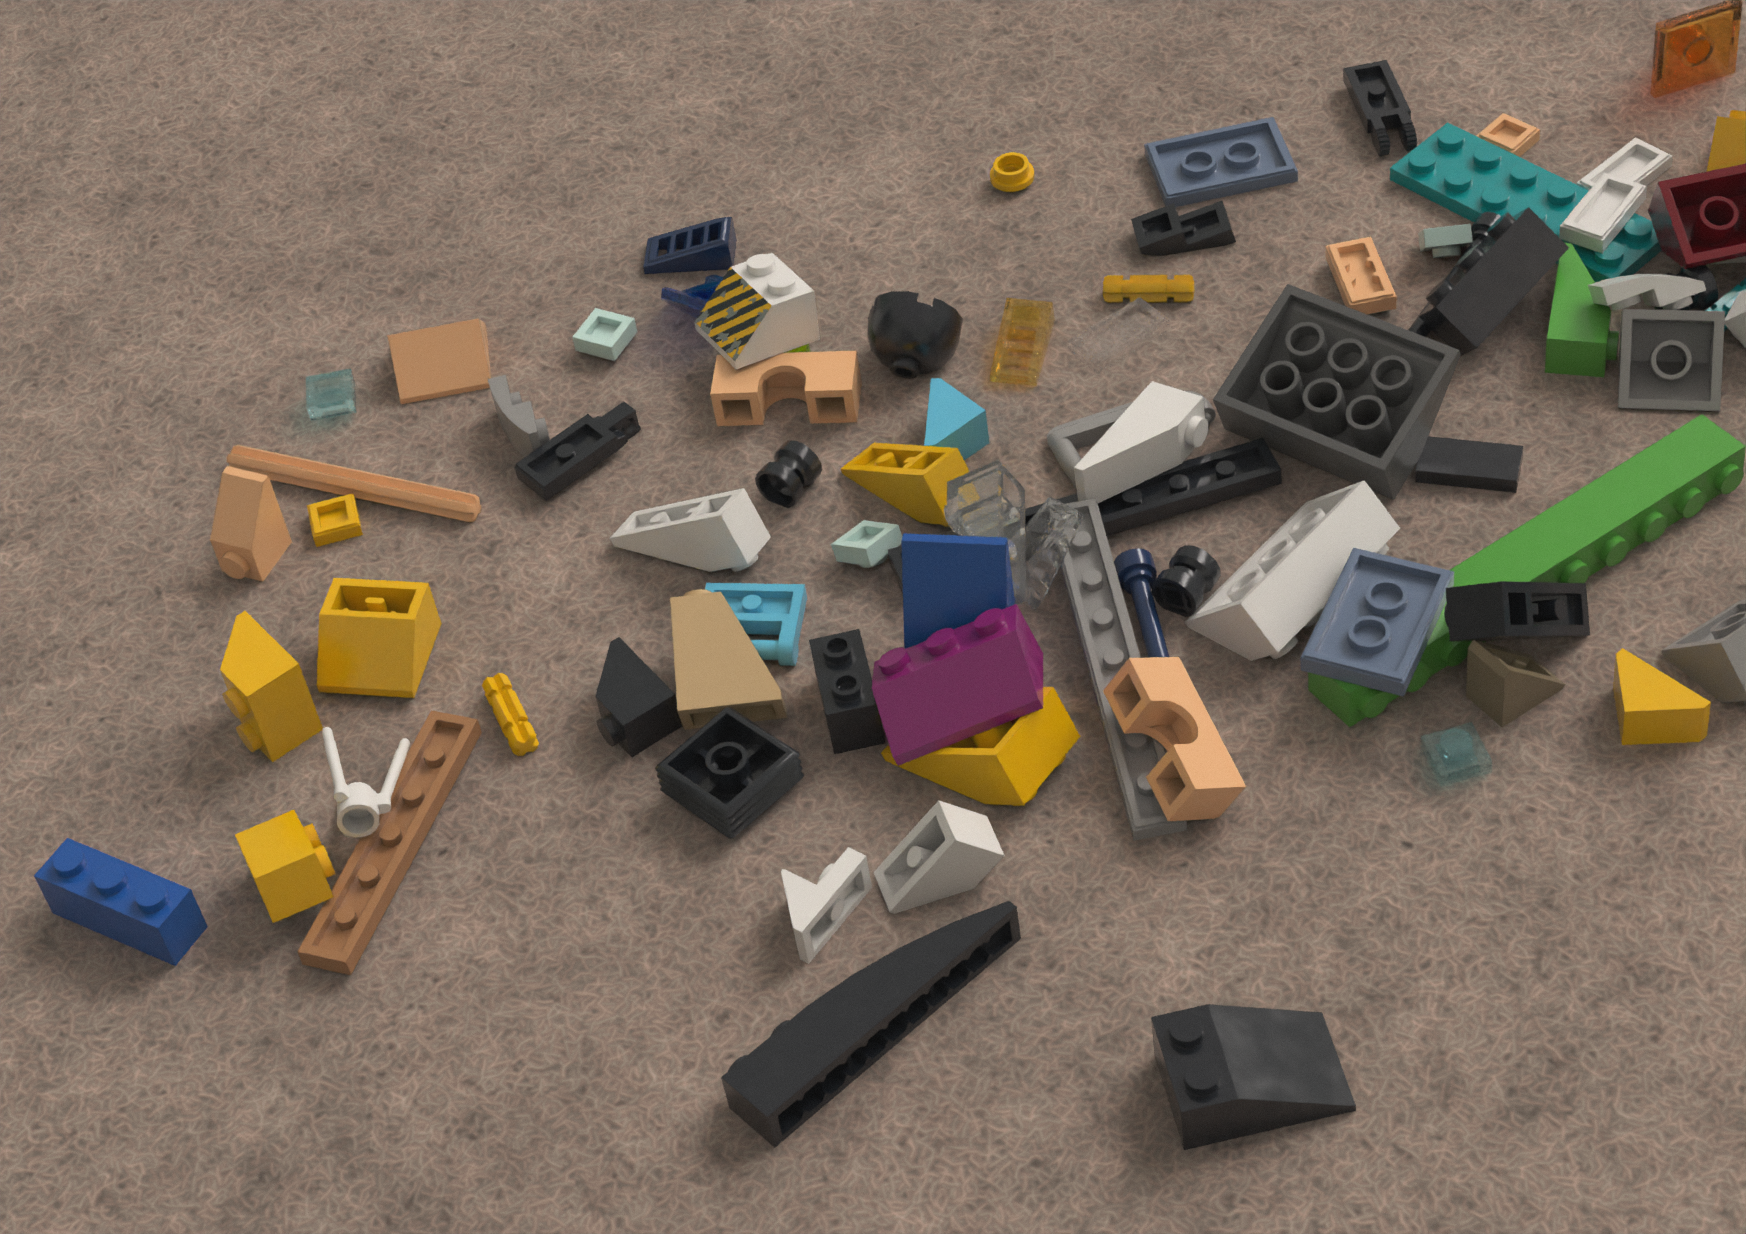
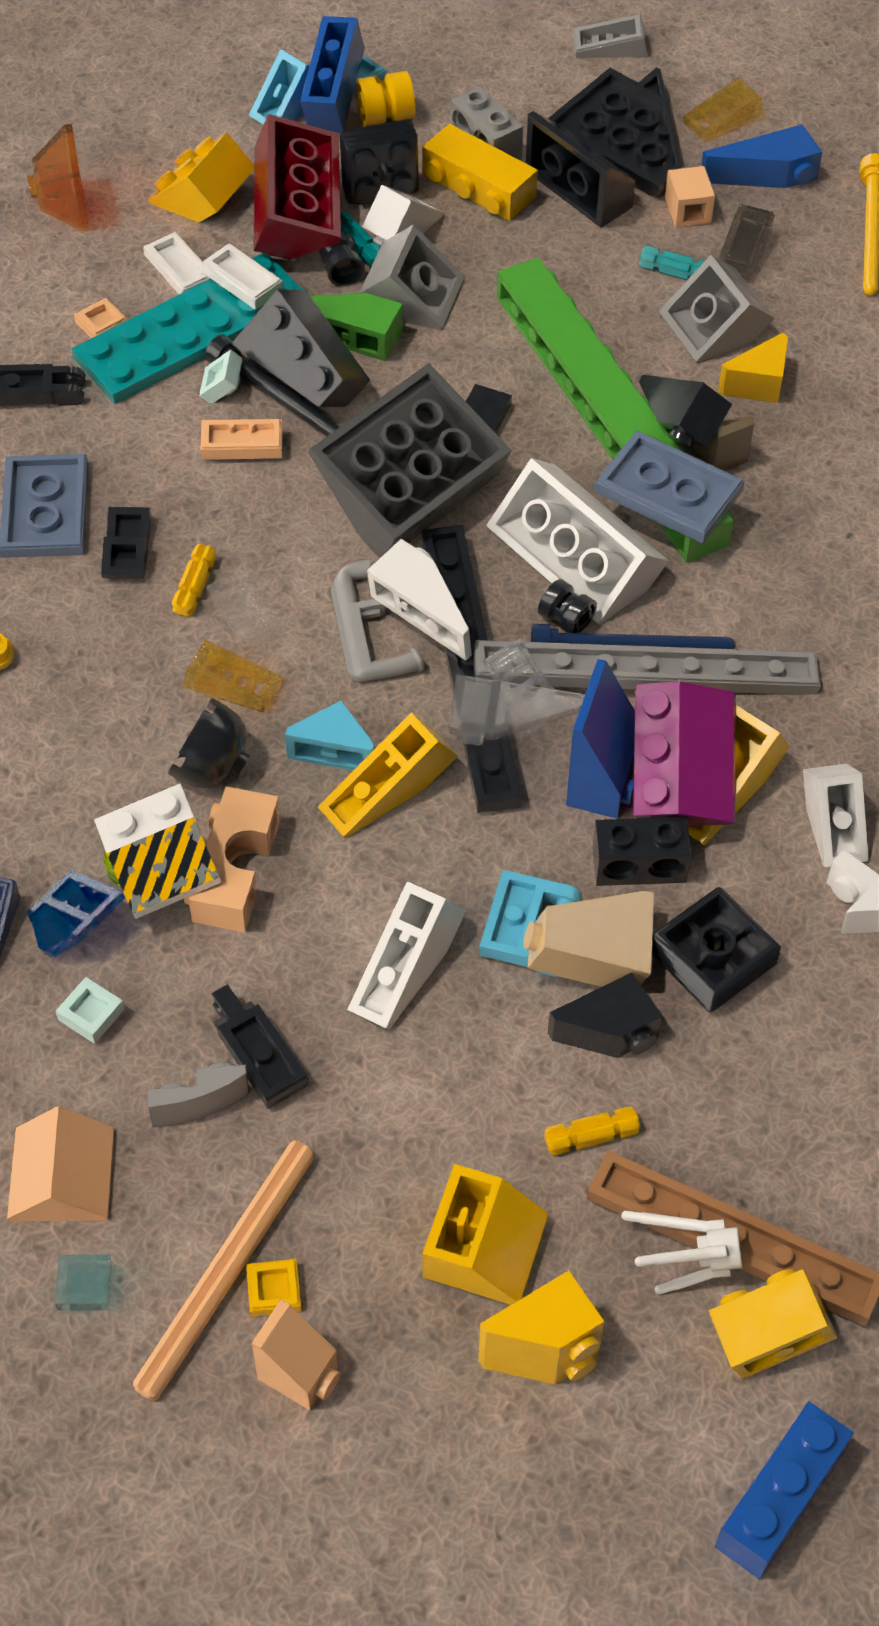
camera: 90 degrees left, 10 degrees up
(792, 469) = (351, 869): black wheel -> none
(867, 543) = (459, 819): light aqua plate -> none
(1197, 772) = (784, 627): light nougat arch -> none
(1456, 754) = (774, 488): clear light blue plate -> none
(1656, 289) = (365, 263): white slope -> none

